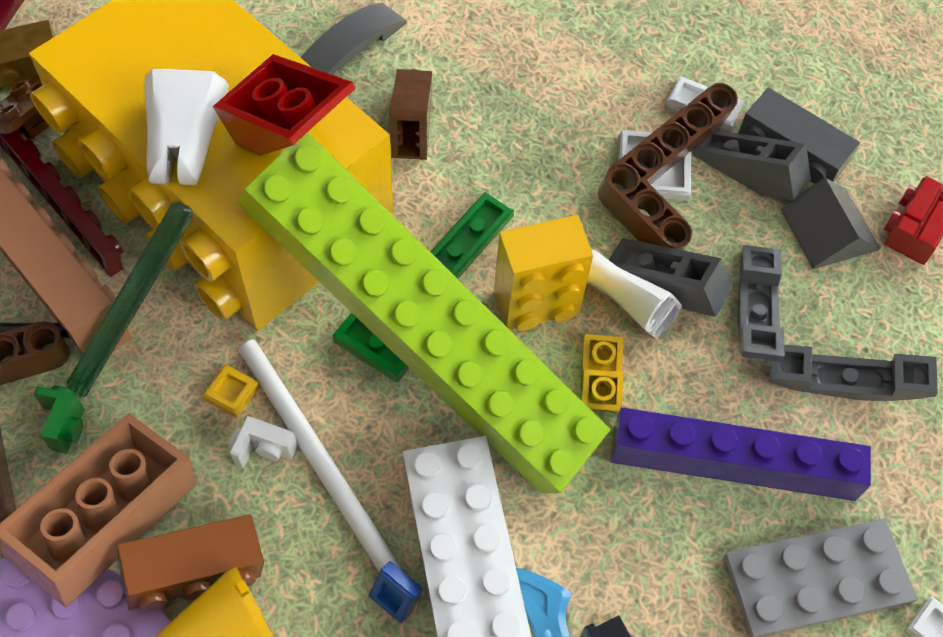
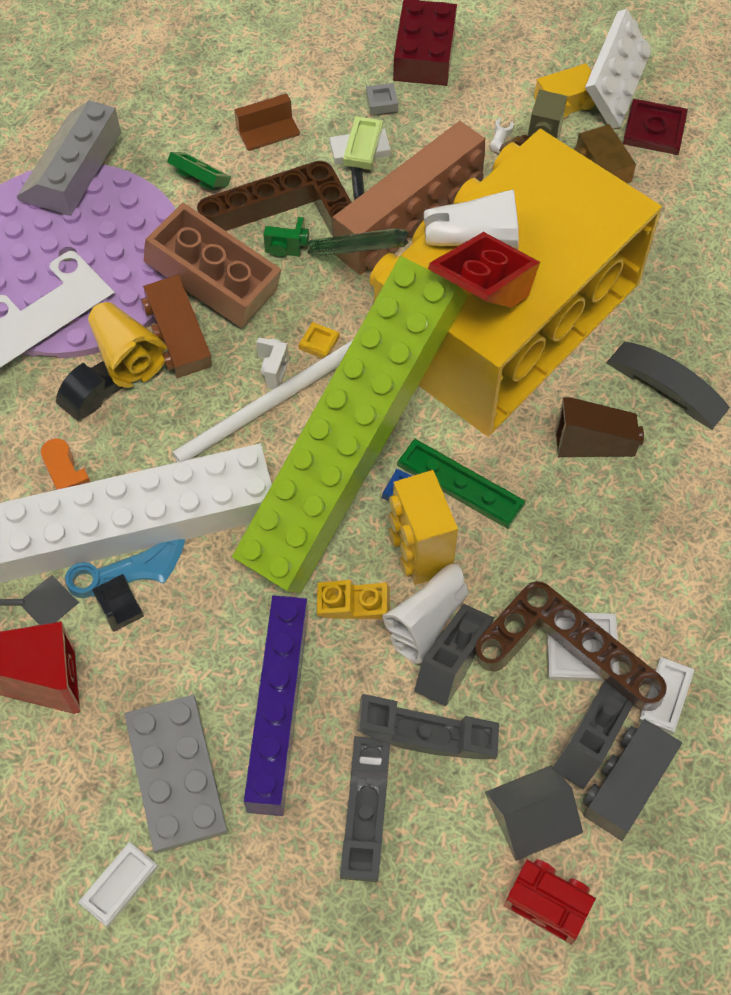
camera: 90 degrees right, 0 degrees up
(395, 592) = (159, 455): blue tile -> none

